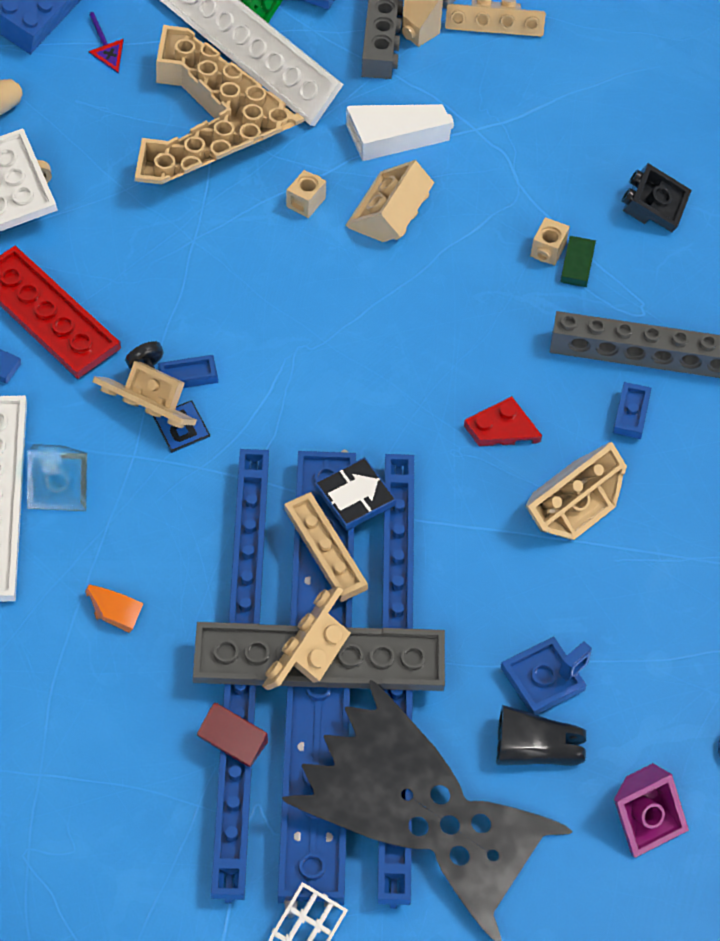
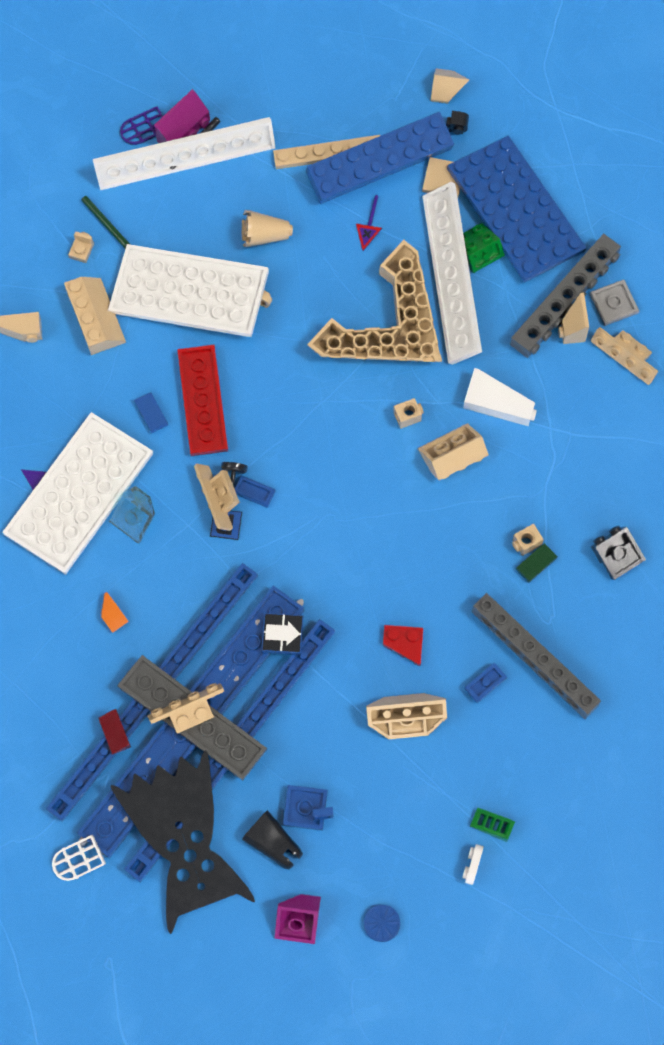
camera: 40 degrees right, 15 degrees up
(325, 546) = (241, 656): tan plate -> none

